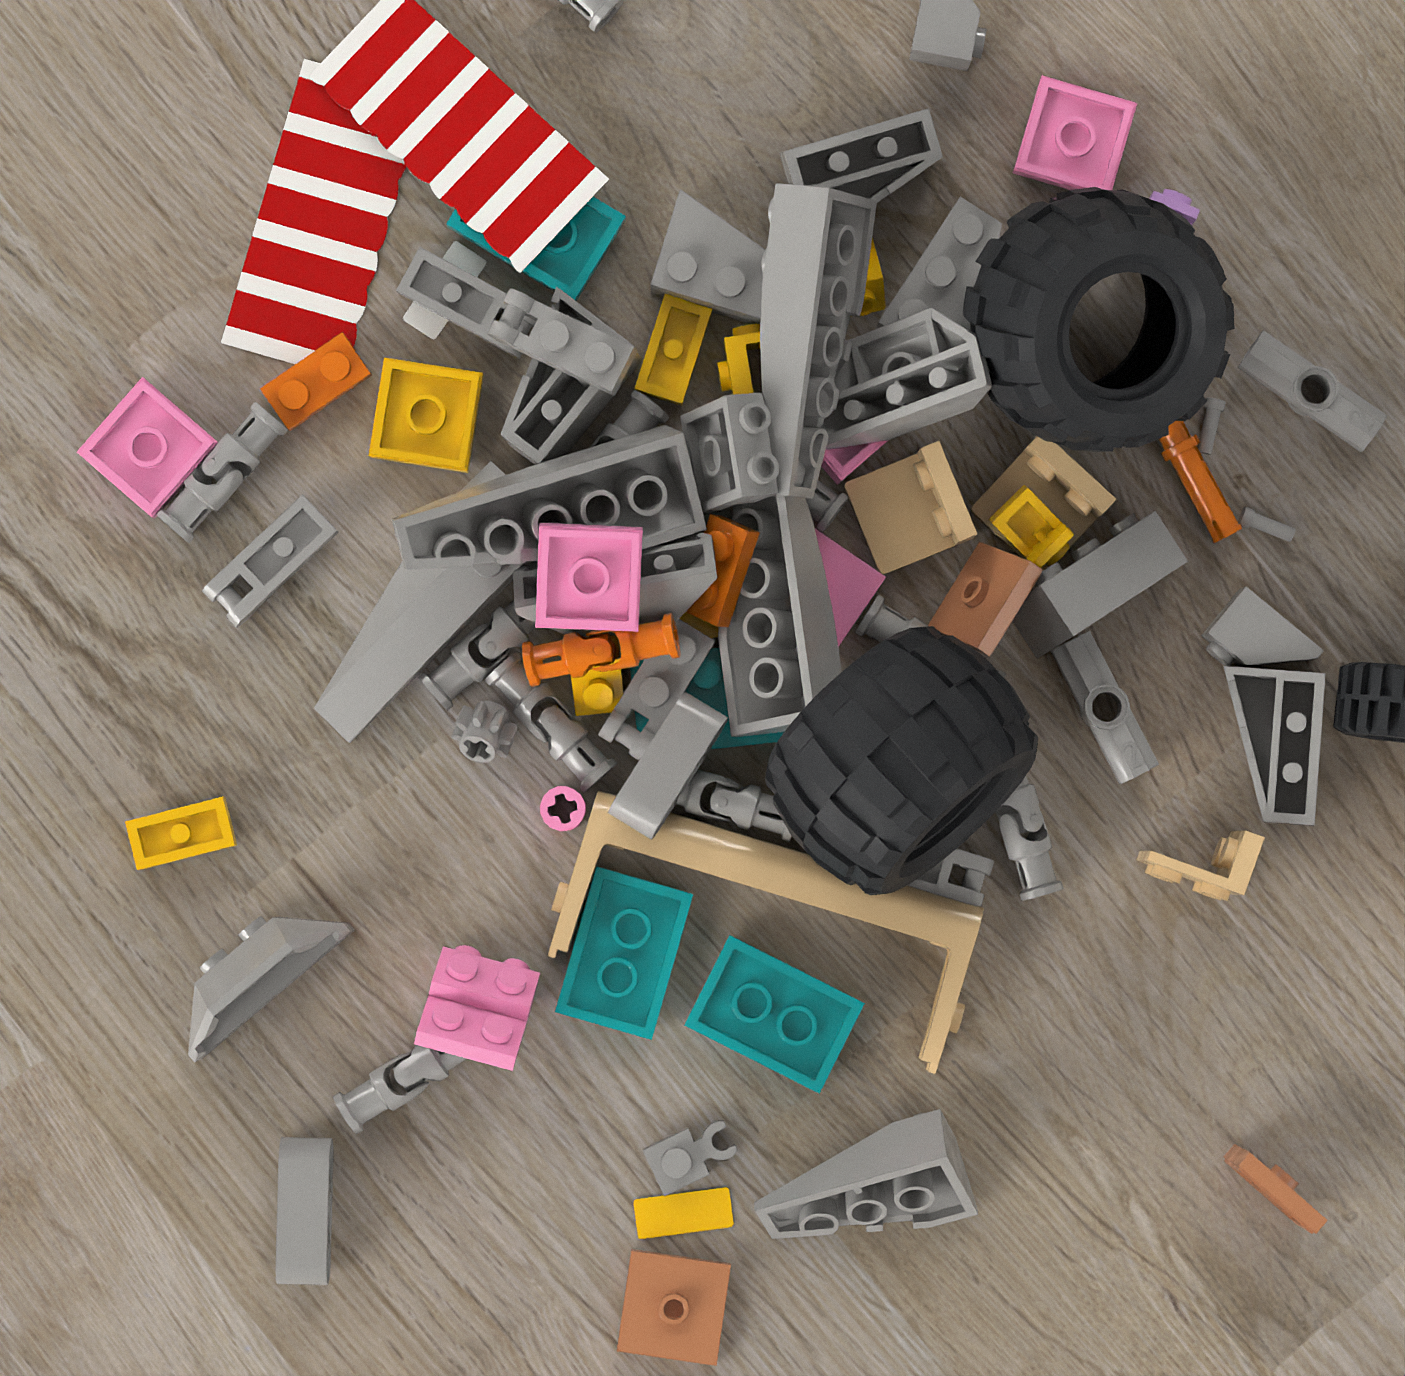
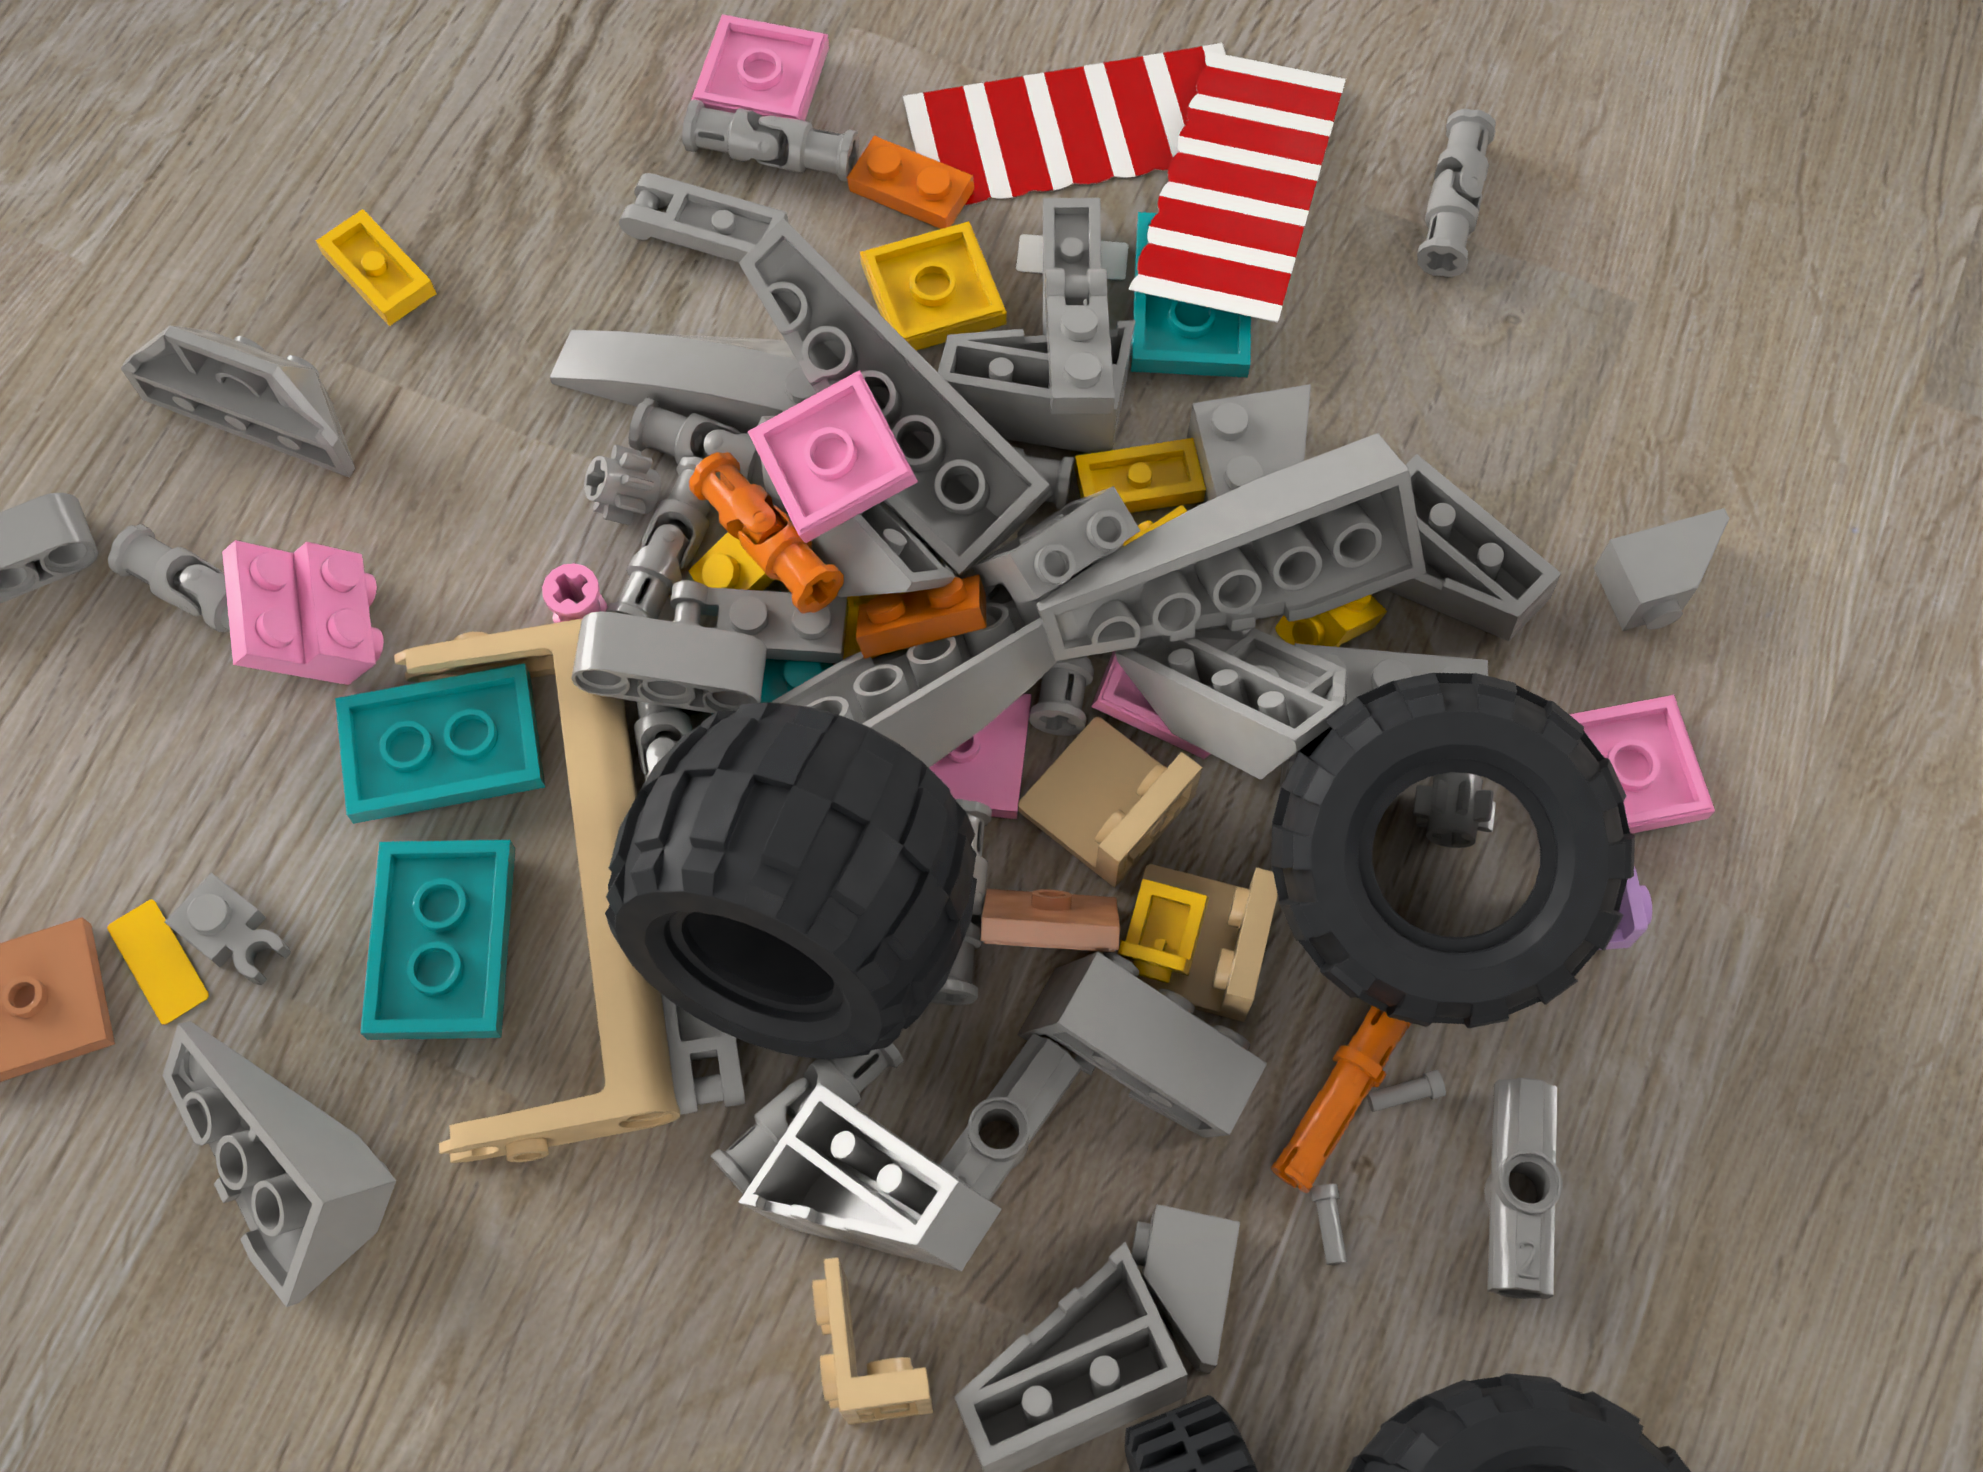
camera: 70 degrees right, 20 degrees down
(1106, 807) = (867, 1187): none -> light grey wedge

